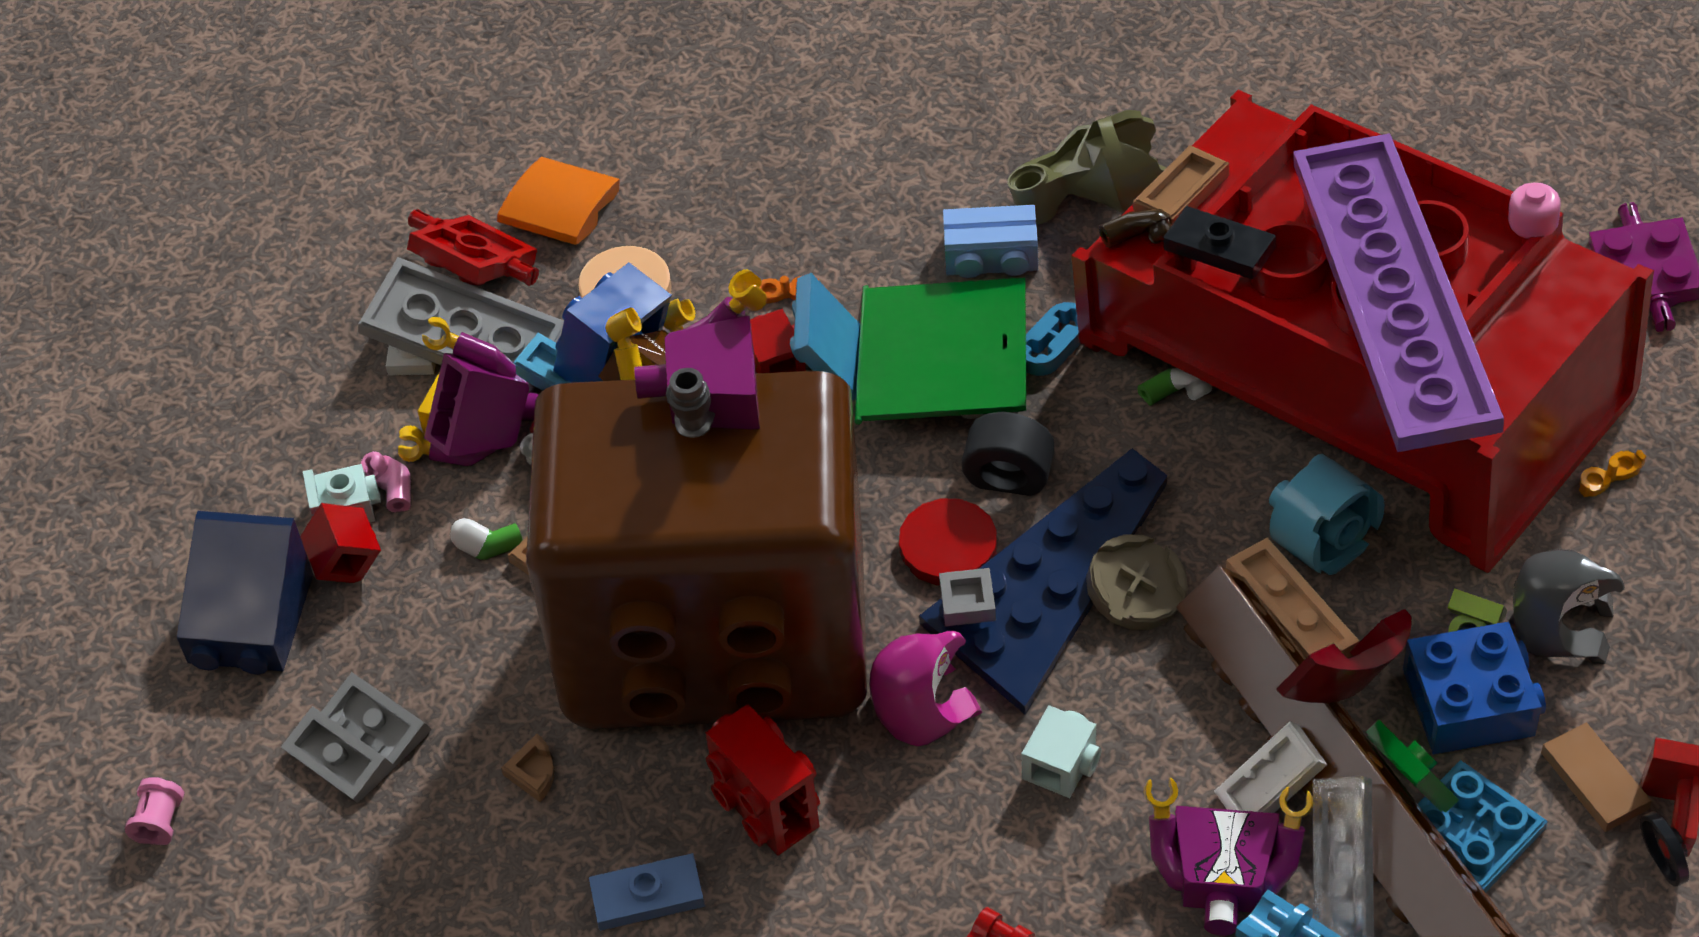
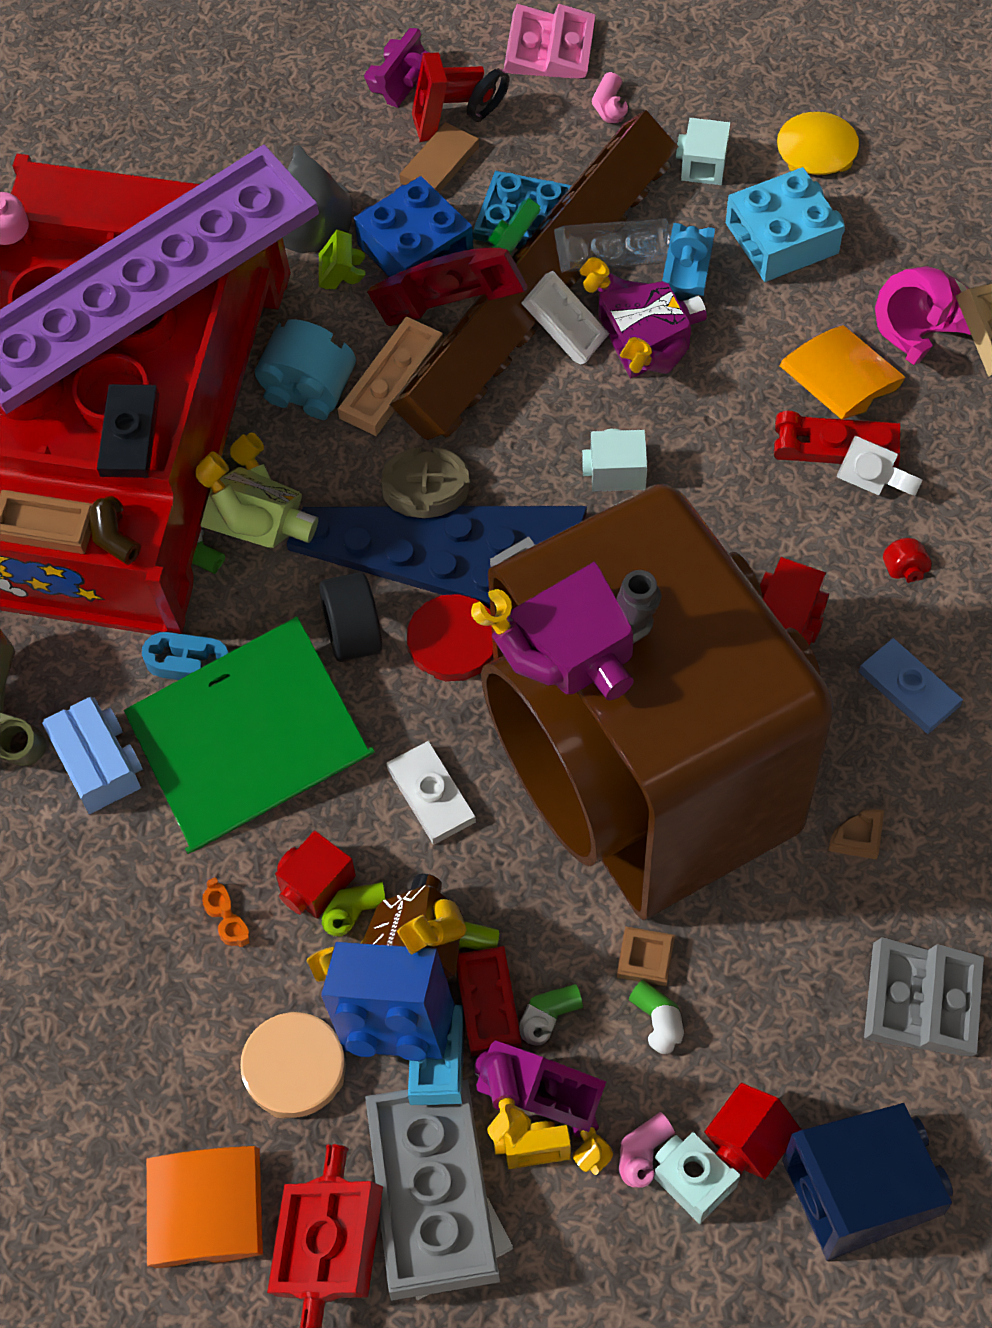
camera: 120 degrees left, 10 degrees up
(824, 332) = (312, 811): dark azure tile -> none
(1172, 412) = (248, 501): none -> yellowish green torso

